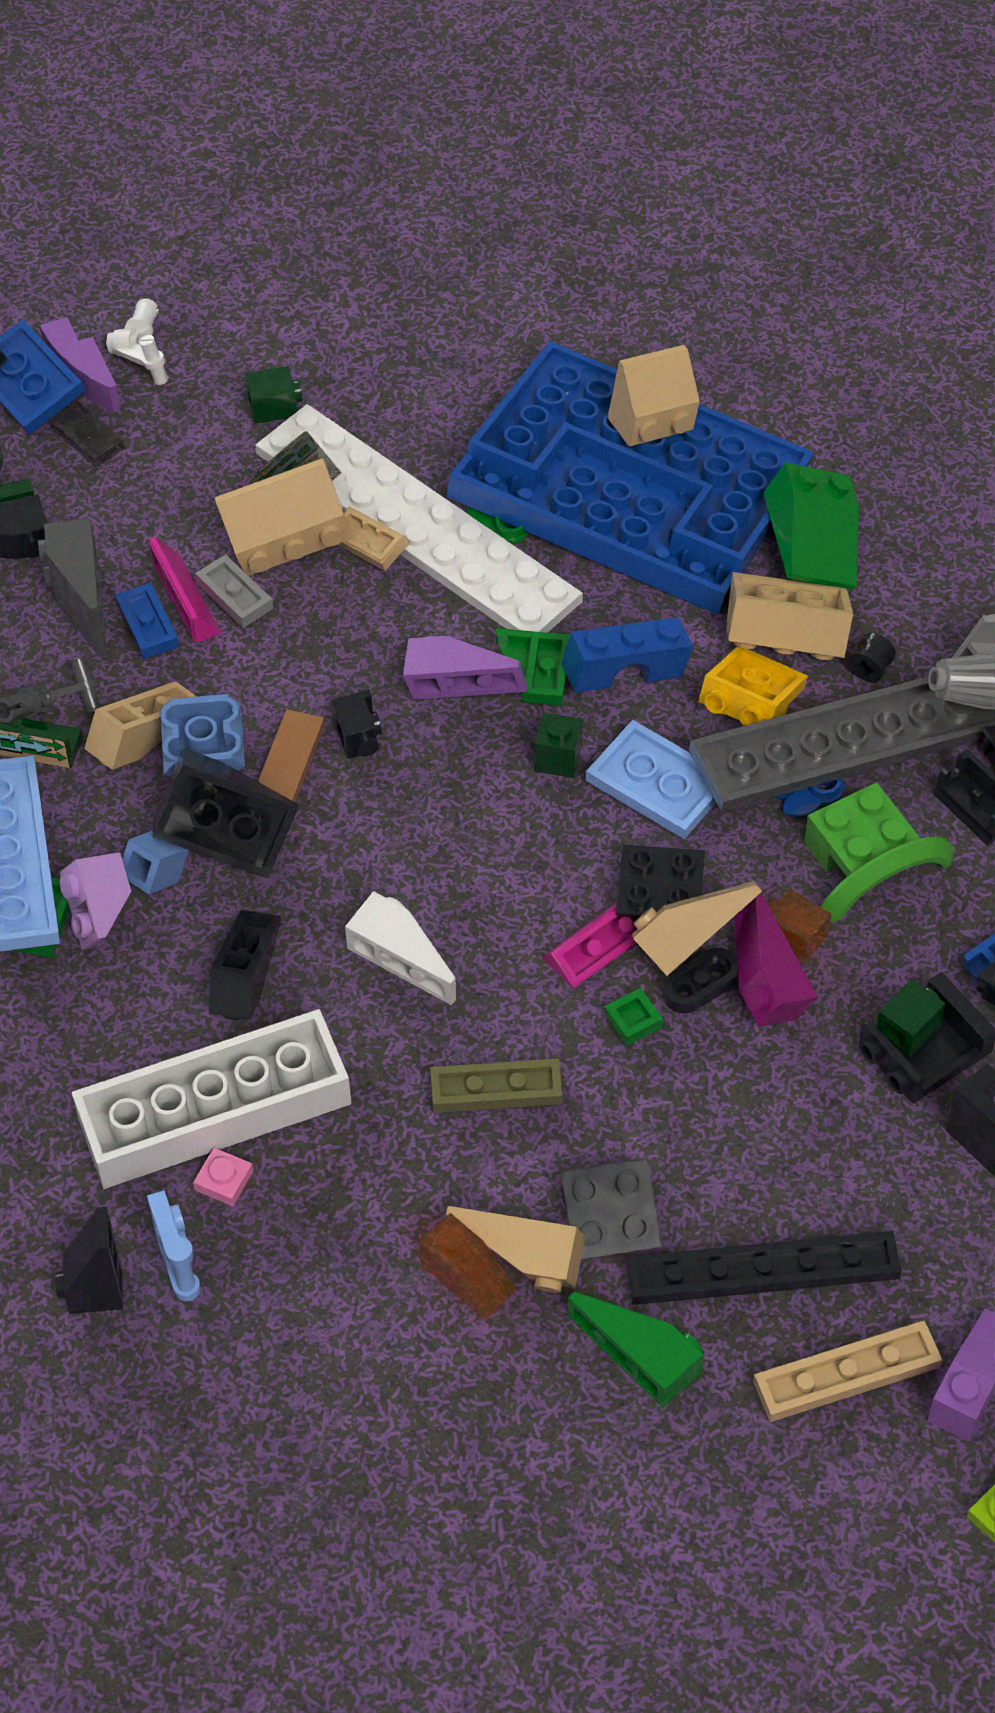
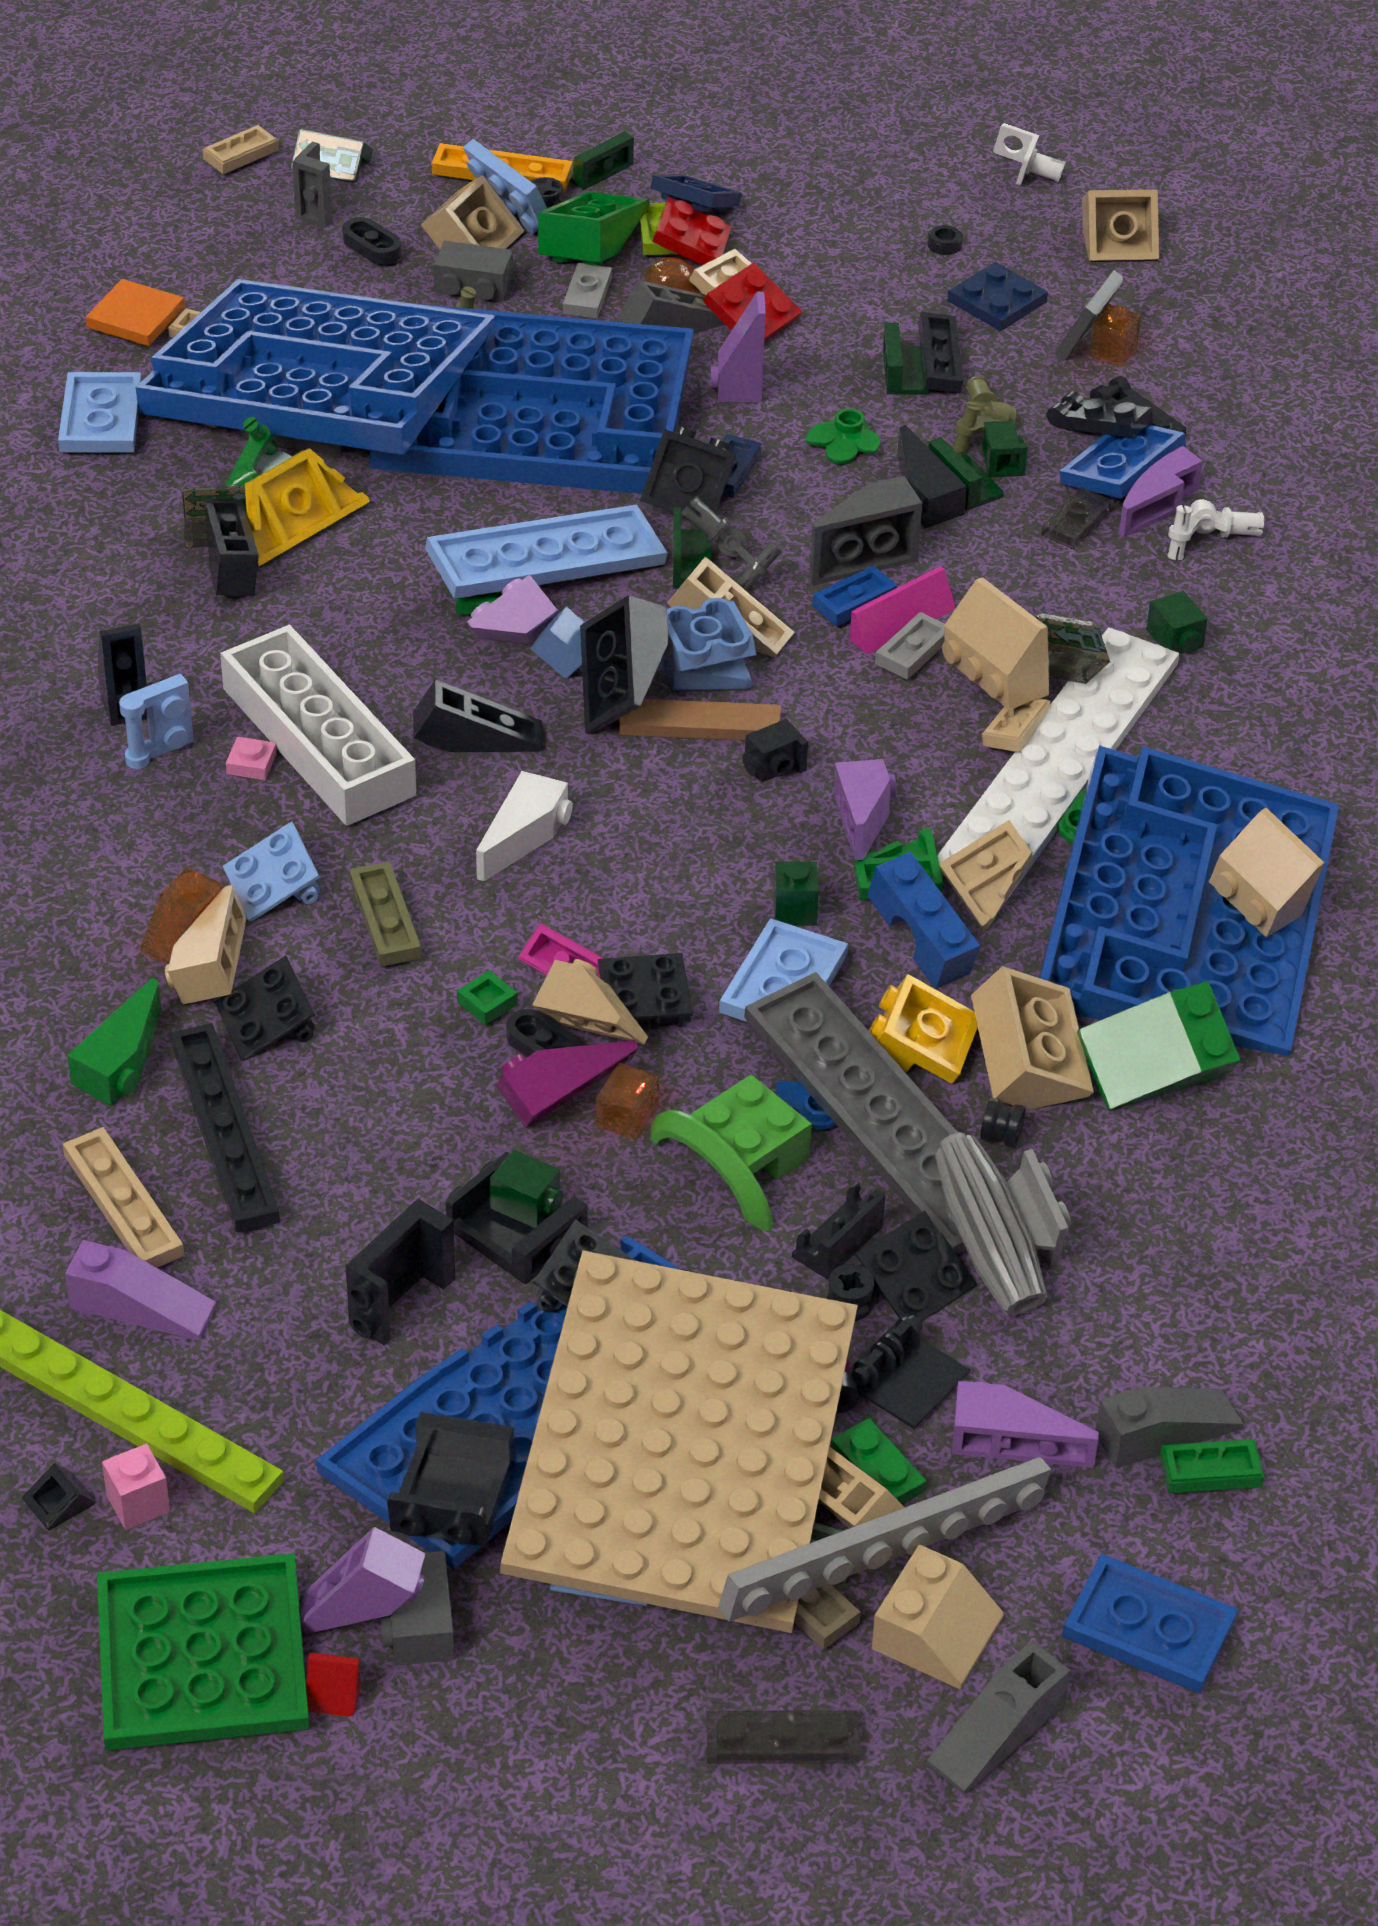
camera: 75 degrees right, 10 degrees down
(412, 1176) = (273, 873): none -> light blue hinge
(571, 596) = (988, 871): none -> tan wing

